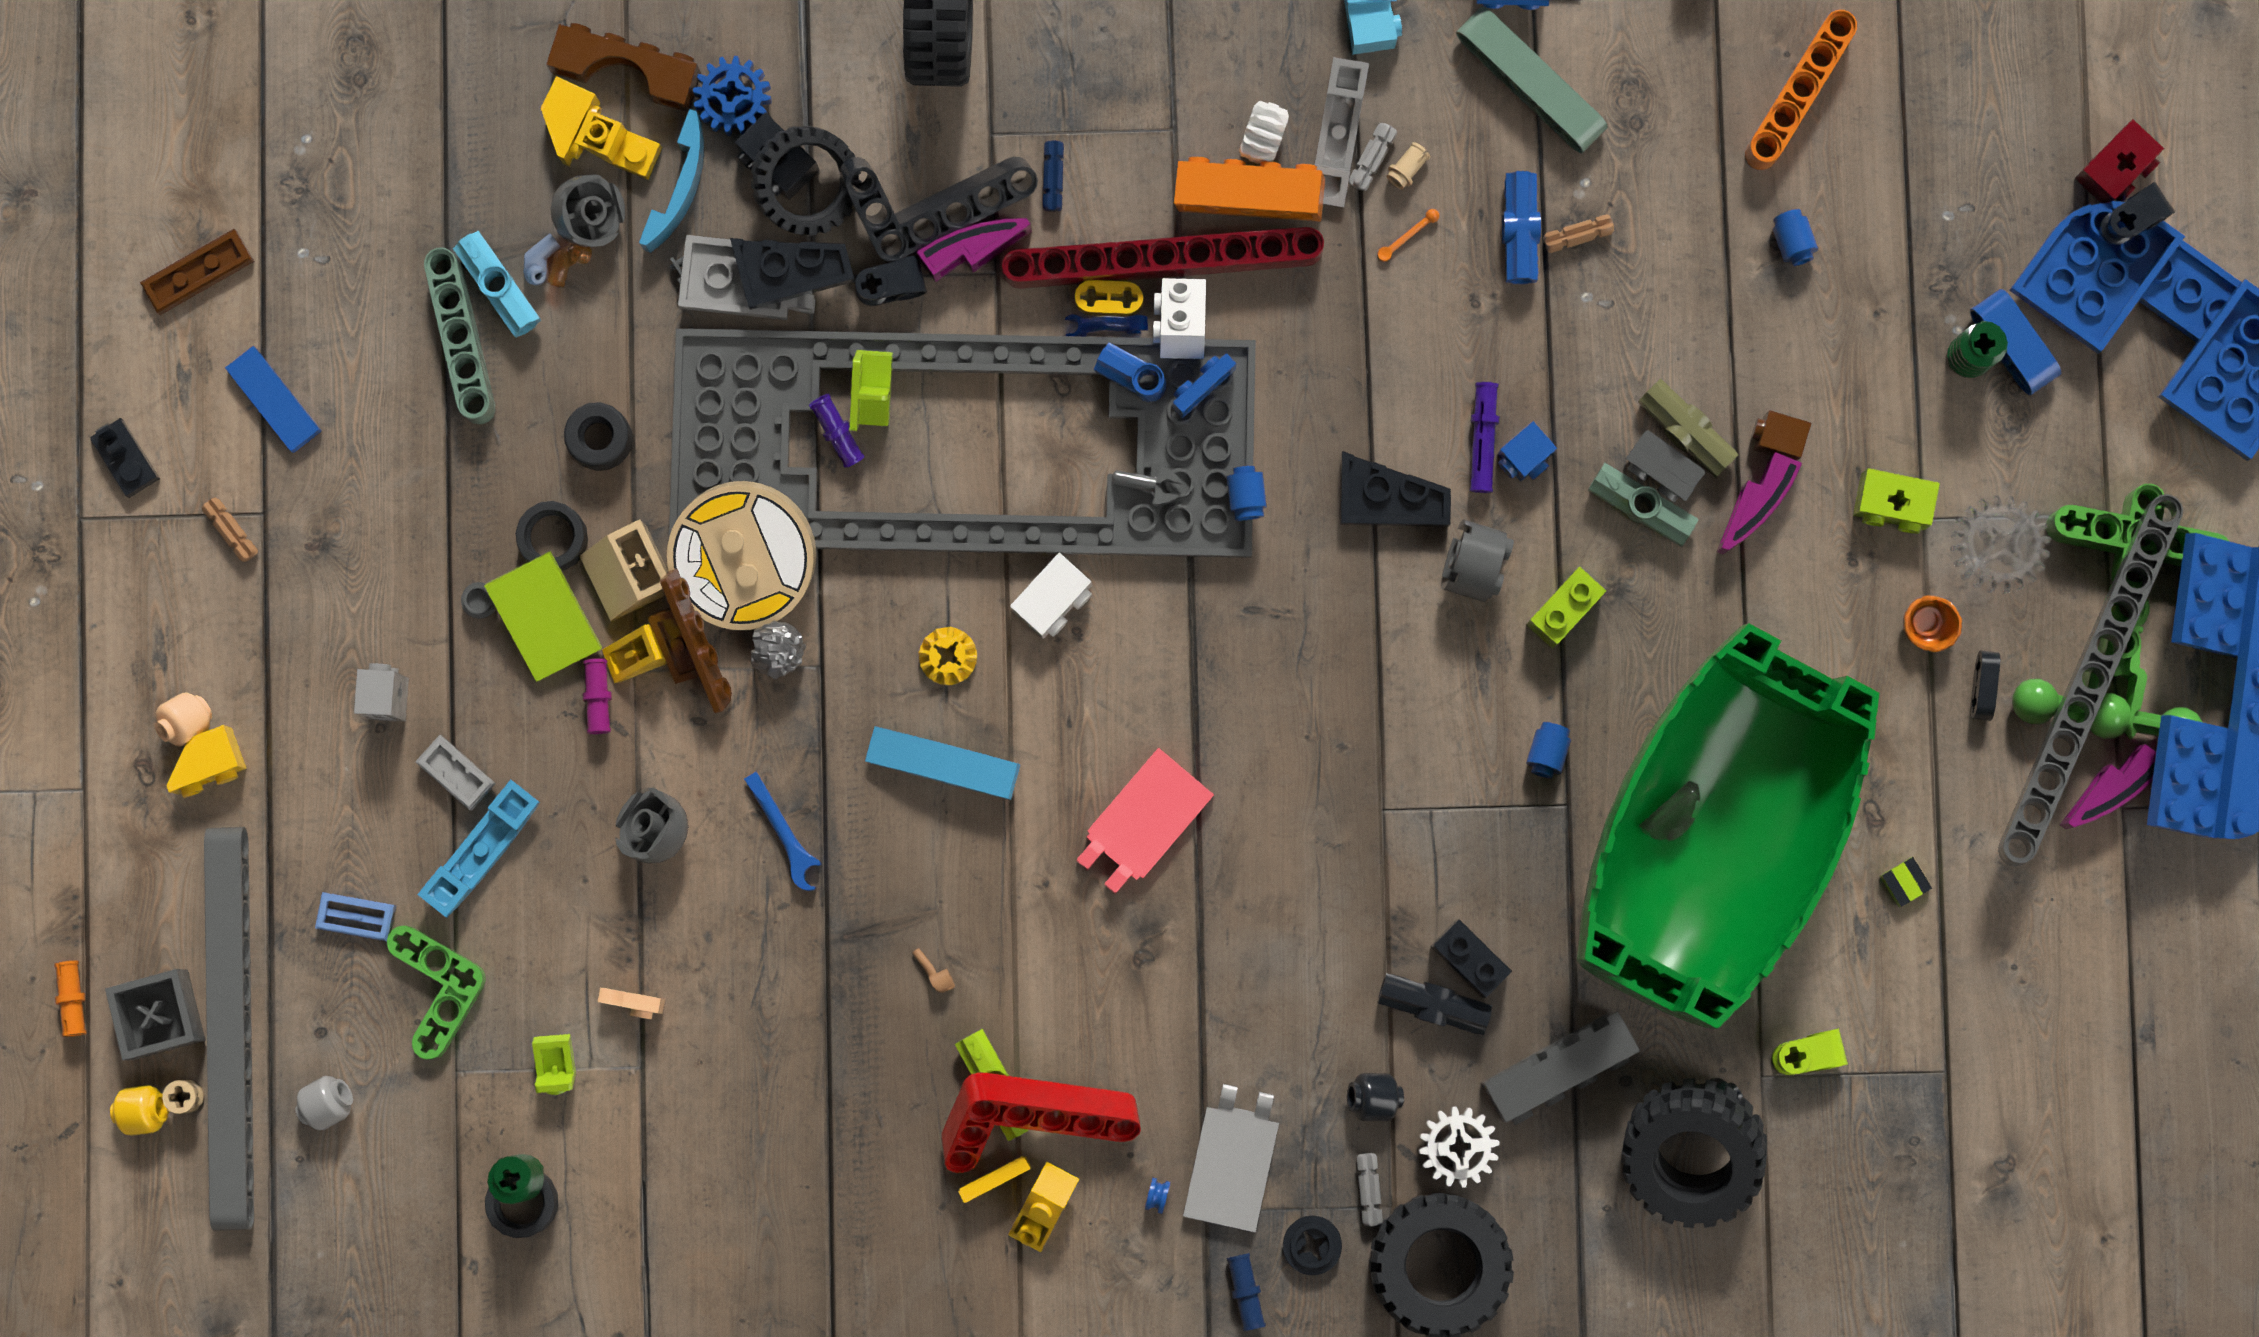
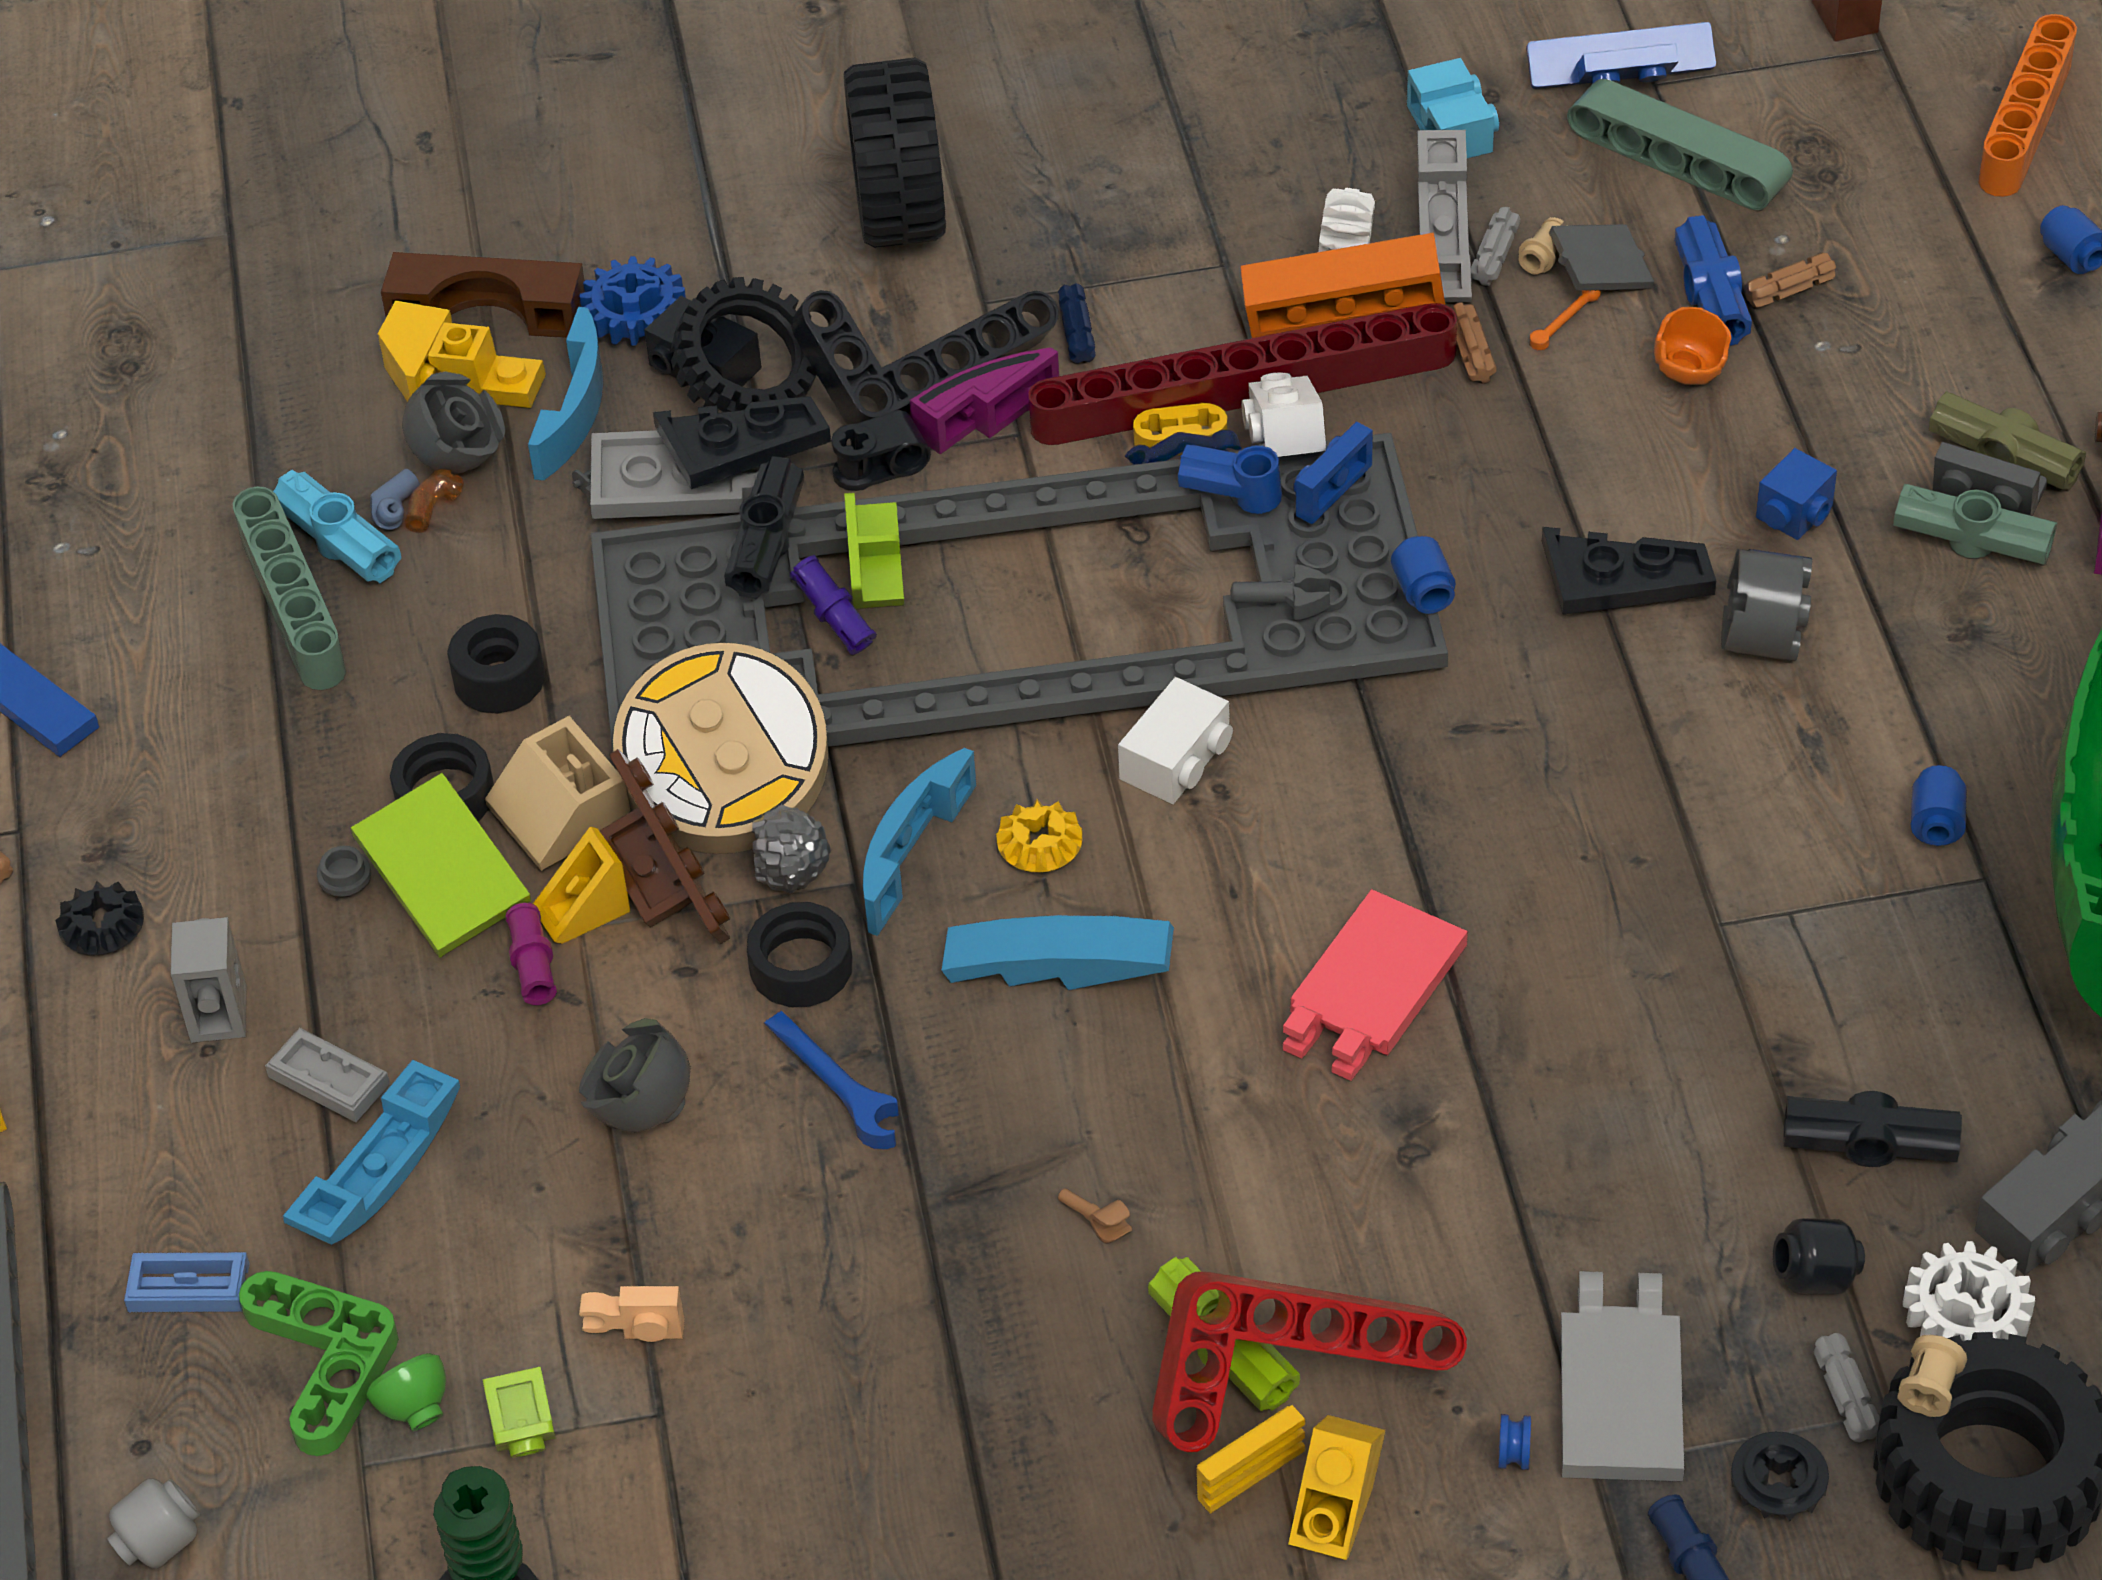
camera: 10 degrees left, 35 degrees down
(326, 619) = (119, 924): none -> black gear
(488, 1033) = (411, 1391): none -> bright green brick
(746, 726) = (793, 922): none -> black tyre
(805, 340) = (764, 527): none -> black piece
(889, 610) = (935, 792): none -> dark azure slope
(1334, 252) = (1473, 344): none -> medium nougat axle
(1408, 1238) = (1932, 1375): none -> tan bush
(1446, 187) = (1601, 257): none -> dark grey piece
(1471, 958) = (1907, 1058): black brick -> none
(1484, 437) = (1728, 477): dark purple pin -> none
(1488, 298) = (1692, 346): none -> orange hair
(1566, 607) = (1907, 644): lime brick -> none

